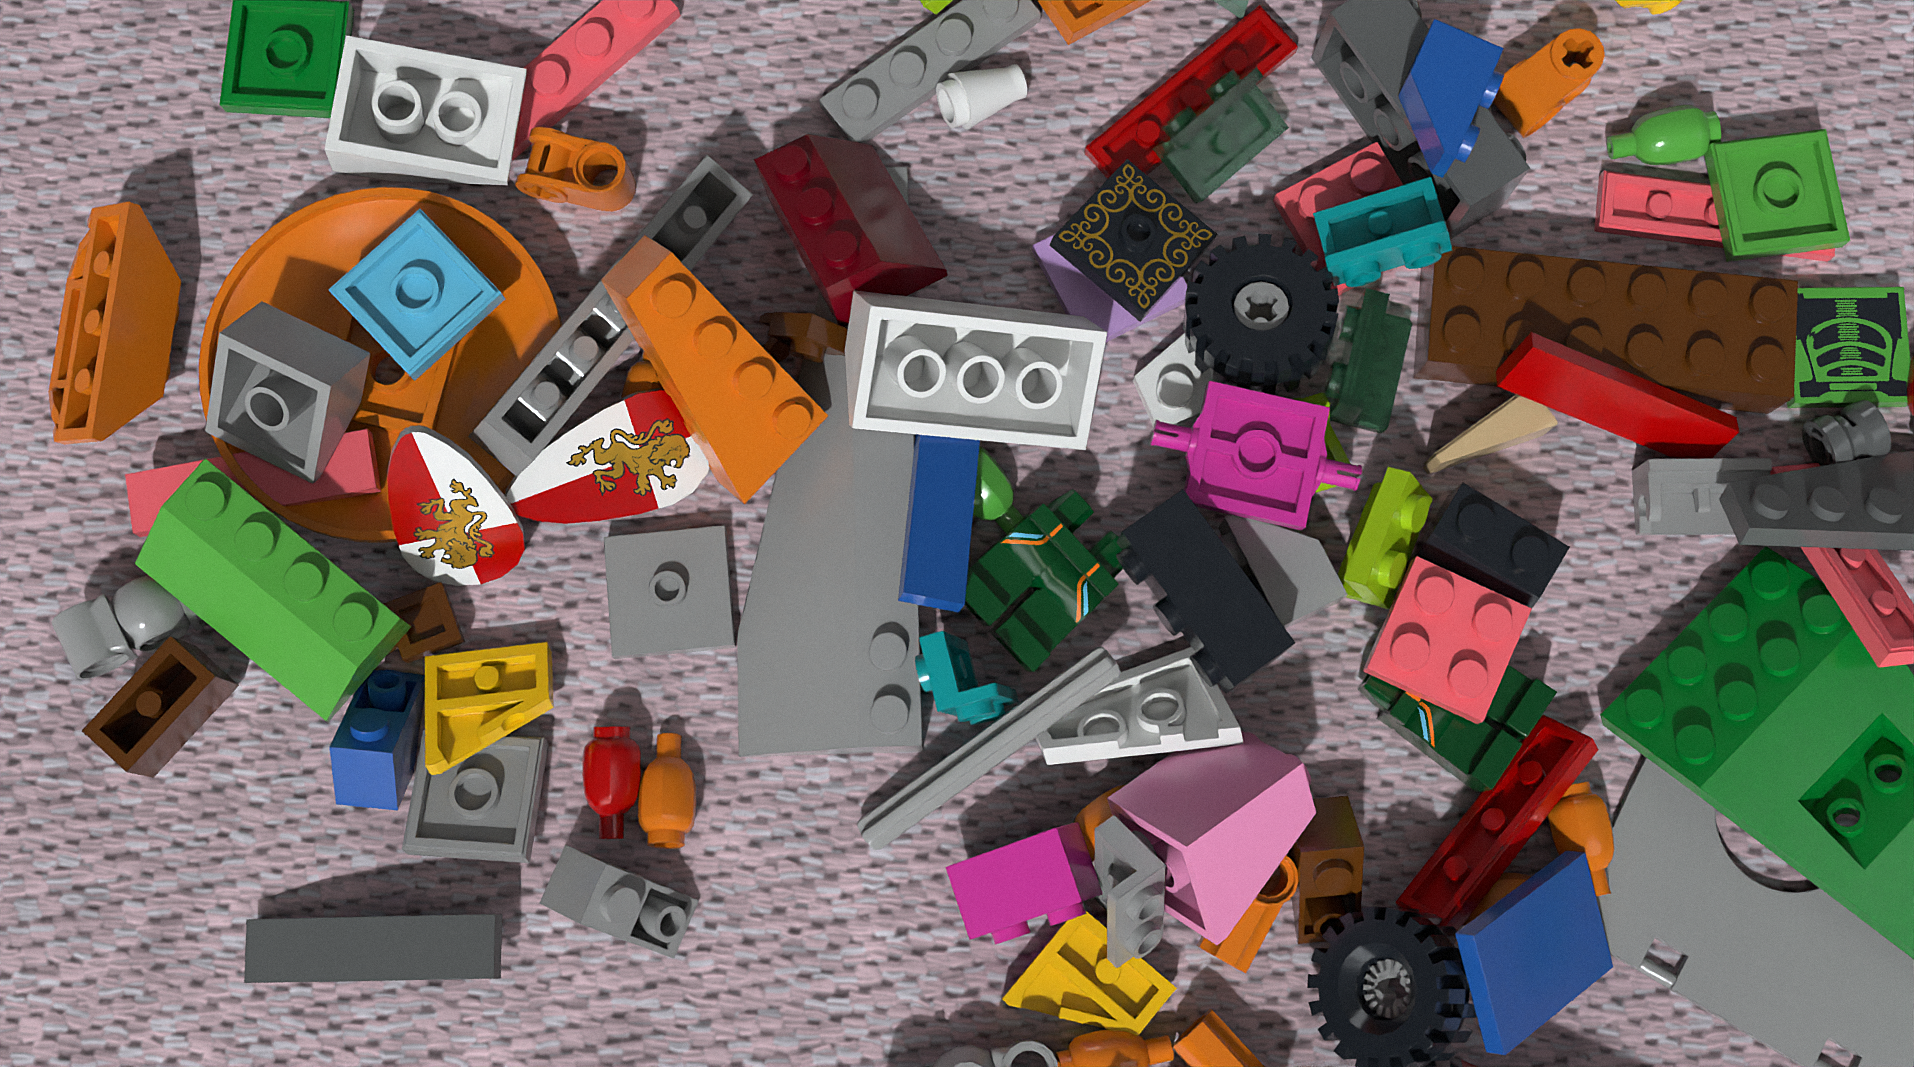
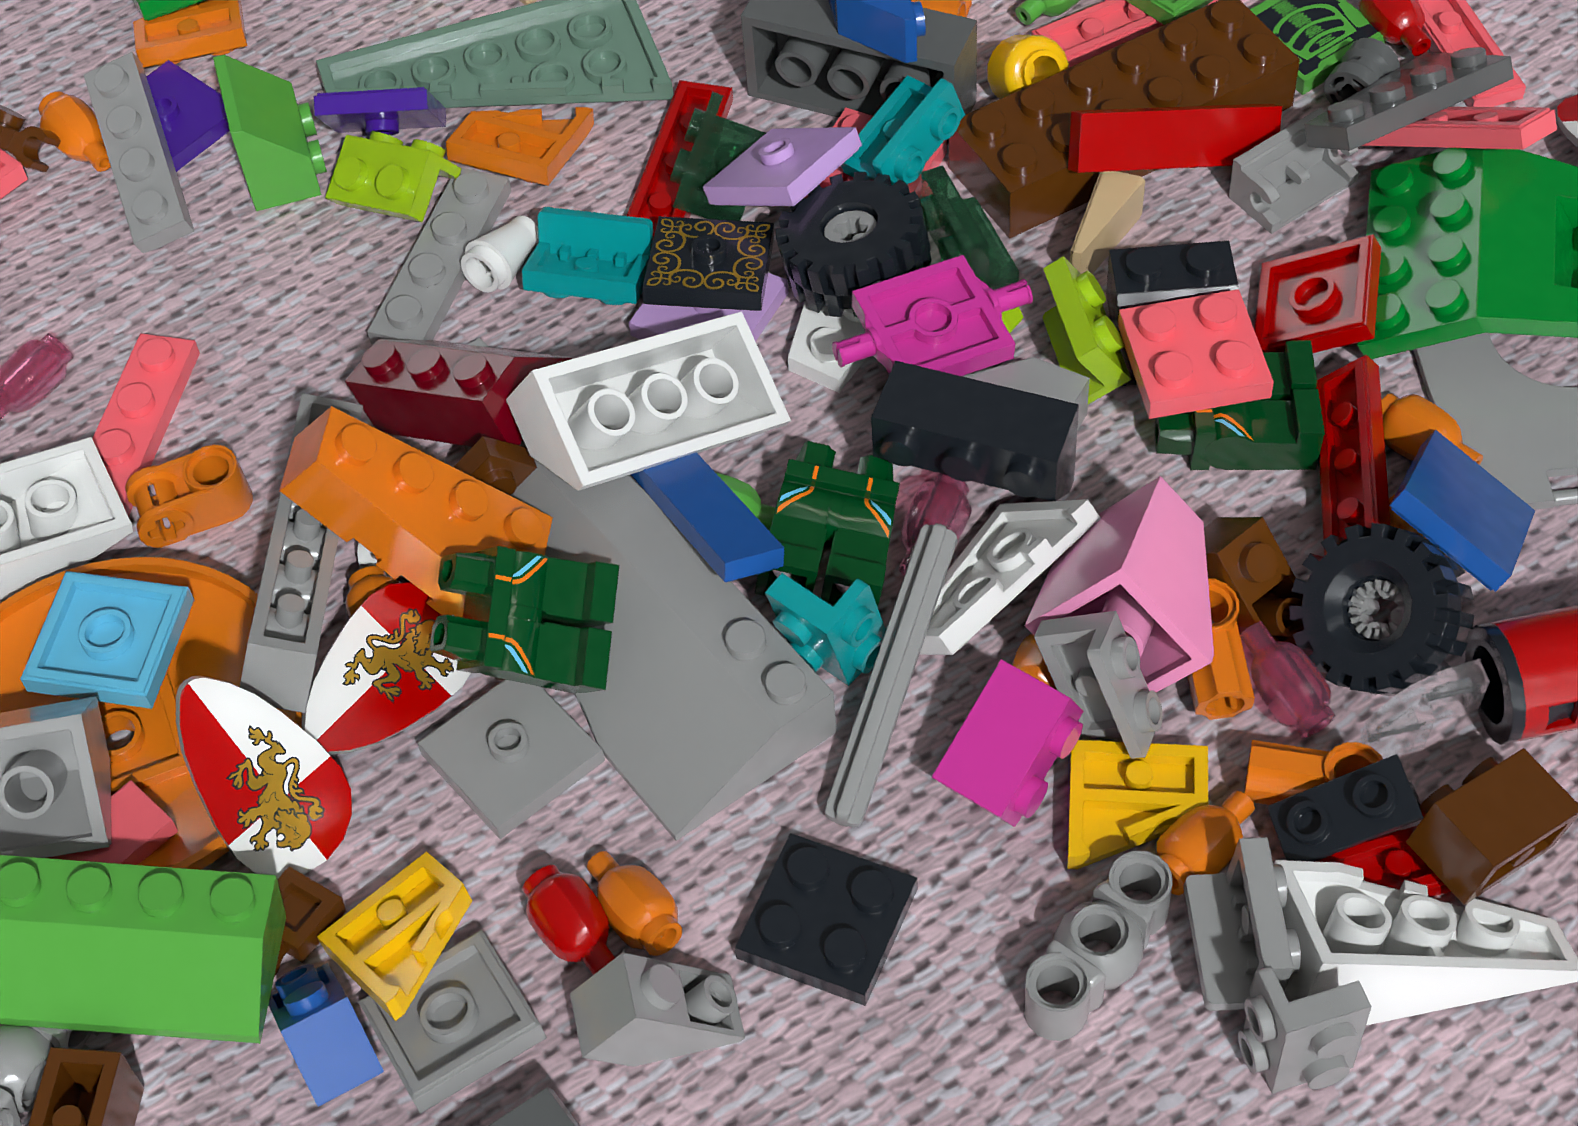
camera: 30 degrees left, 25 degrees down
(737, 510) = (504, 612): none -> dark green hips
(797, 908) = (827, 919): none -> black plate
(1044, 157) = (589, 256): none -> teal bracket
(1125, 628) = (935, 502): none -> clear pink plant
(1260, 189) = (783, 166): none -> lavender plate
(1282, 978) = (1288, 682): none -> clear pink plant
(1558, 219) = (1022, 62): none -> yellow head
(1605, 646) = (1320, 296): none -> red plate

